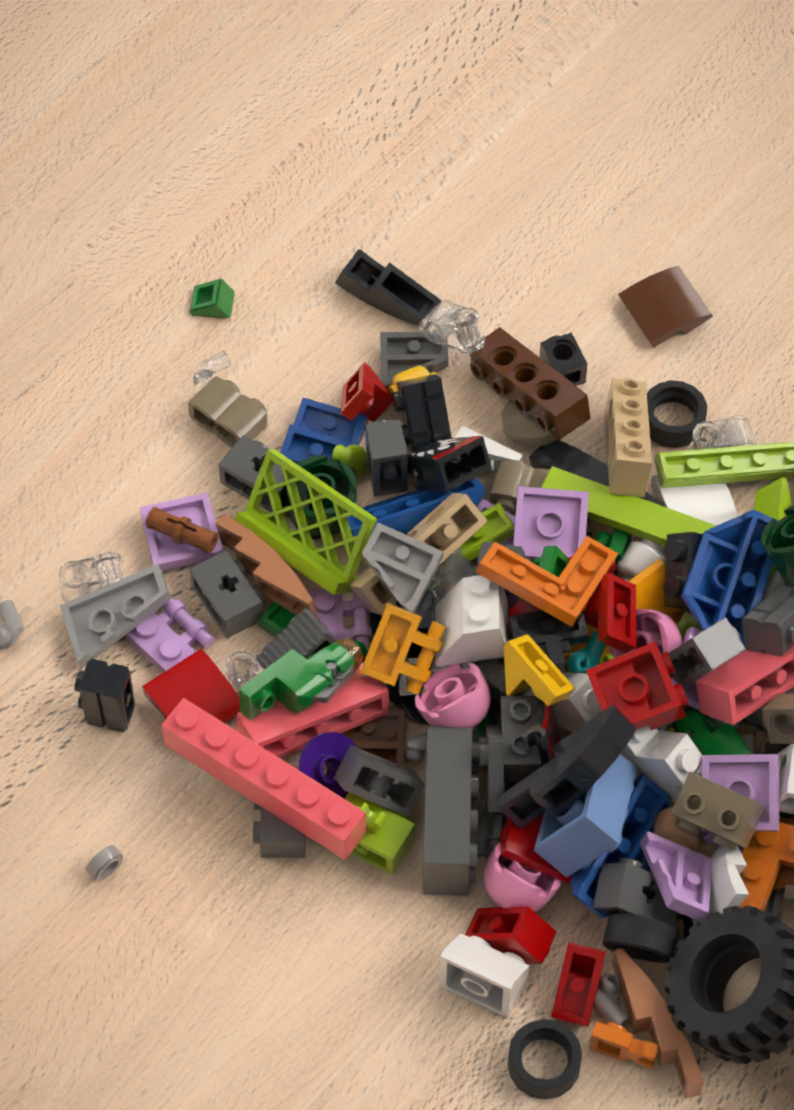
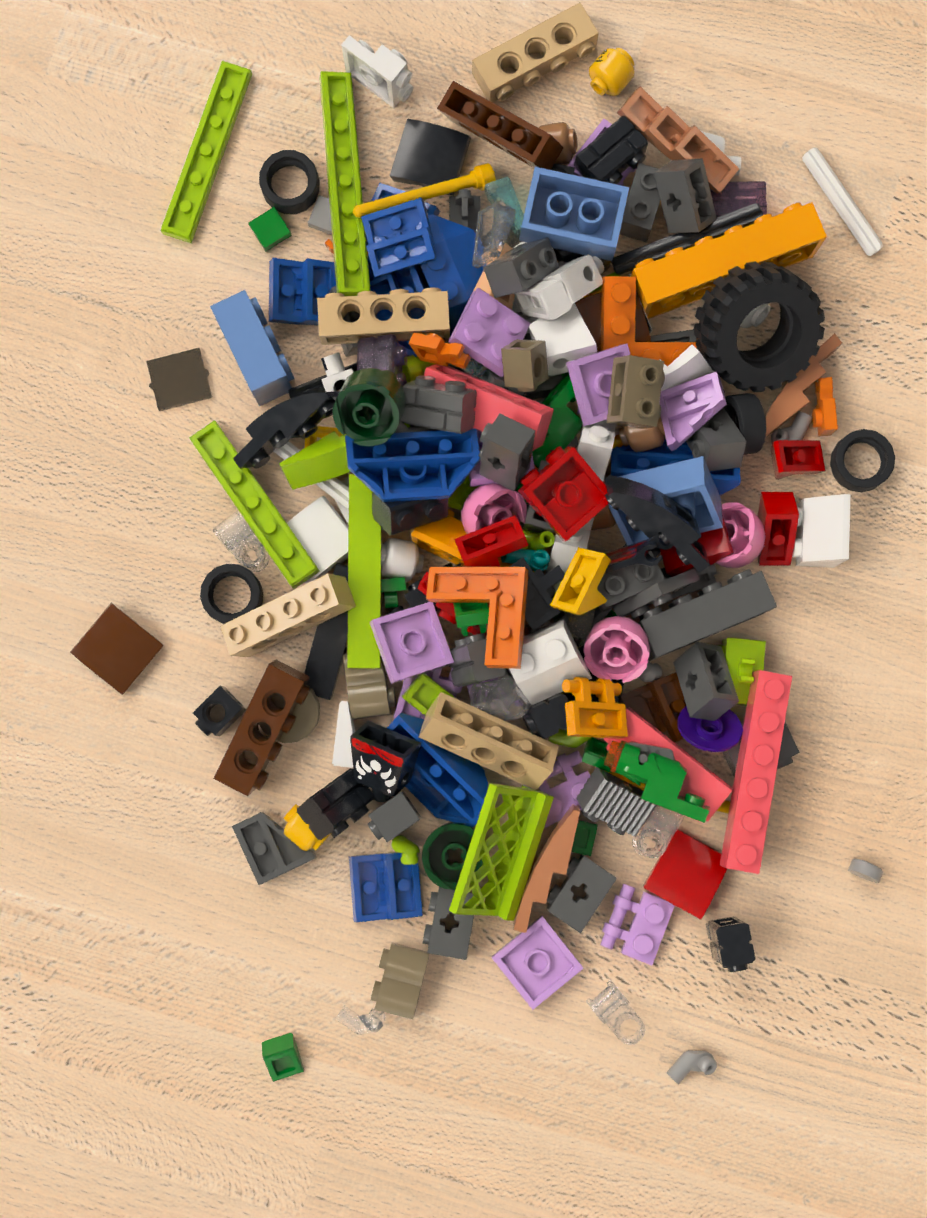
camera: 115 degrees left, 25 degrees up
(113, 611) = (645, 980): light grey wing -> none
(181, 530) = (546, 981): dark orange pin -> none
(365, 395) = (333, 869): red slope -> none
(386, 288) = (206, 900): black slope -> none
(402, 564) = (524, 741): light grey wing -> none
(453, 327) = (234, 817): clear piece -> none

